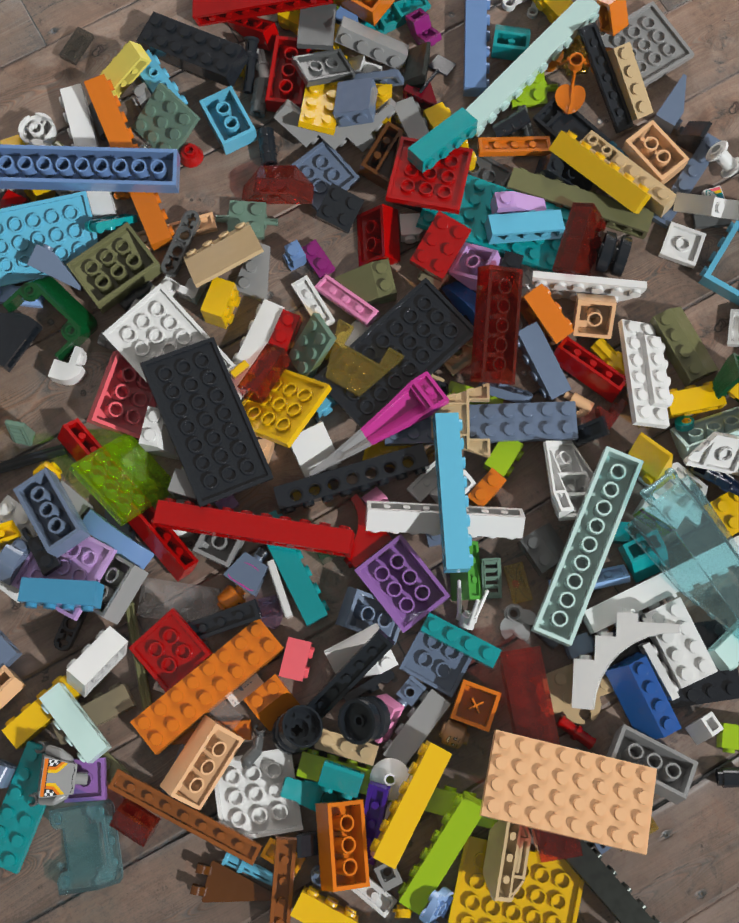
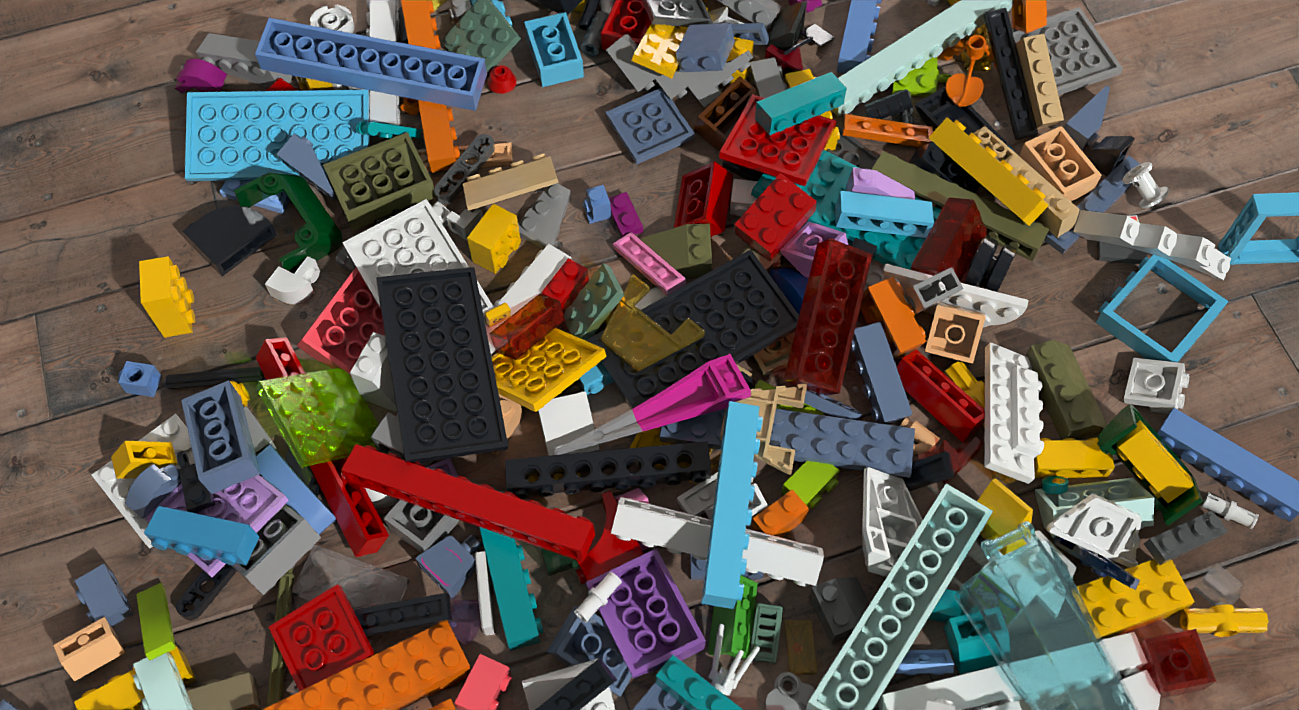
camera: 10 degrees right, 15 degrees down
(20, 432) = (212, 342): sand green slope -> none
(43, 661) = (155, 621): none -> lime tile
(96, 661) = (222, 634): white brick -> none
(231, 597) = (418, 587): orange head -> none
(248, 212) = (561, 152): sand green plate -> none
(267, 146) = (592, 85): black axle -> none
(278, 186) = (595, 127): clear red wedge -> none
(311, 299) = (605, 252): white plate -> none
(339, 208) = (663, 162): black plate -> none
(366, 580) = (597, 597): none -> white pin
(510, 42) = (899, 21): teal slope -> none
(571, 293) = (929, 293): none -> light grey torso
(682, 245) = (1080, 274): white plate -> none

